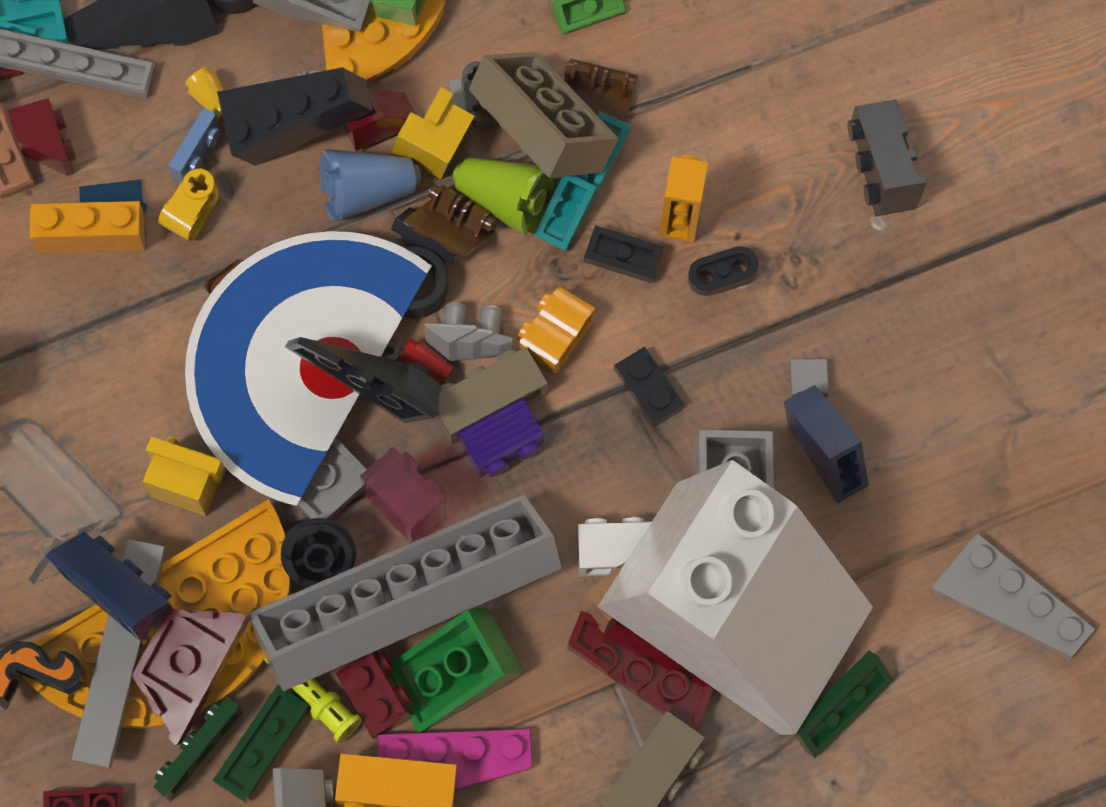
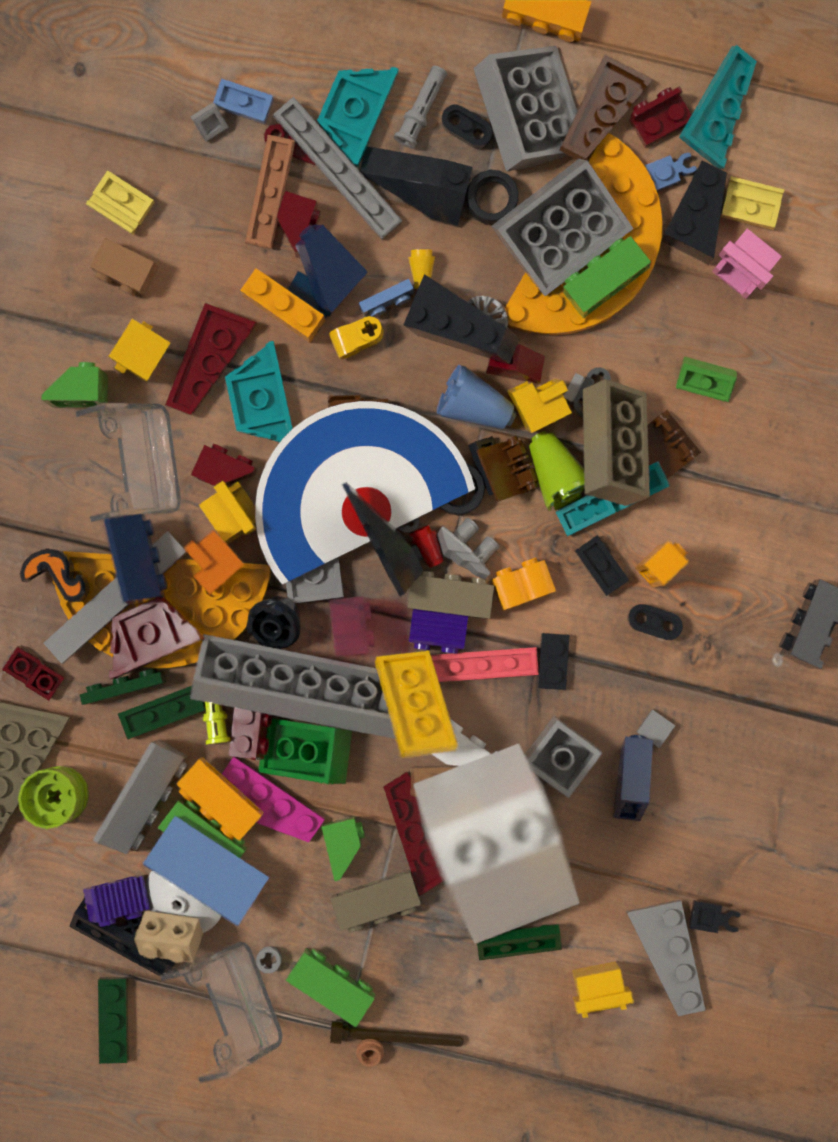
camera: 40 degrees right, 15 degrees up
(41, 332) = (209, 352): none -> dark red wing
(107, 151) = (328, 266): none -> dark blue slope
(130, 337) = (259, 396): none -> teal wing
(130, 435) = (215, 466): none -> dark red slope
(200, 528) = (215, 559): none -> orange plate
(535, 518) = (415, 704): none -> yellow tile
(568, 738) = (342, 843): none -> bright green slope
(576, 444) = (486, 664): none -> coral tile
(969, 687) = (600, 989): none -> yellow plate
(1019, 529) = (708, 917): none -> black plate

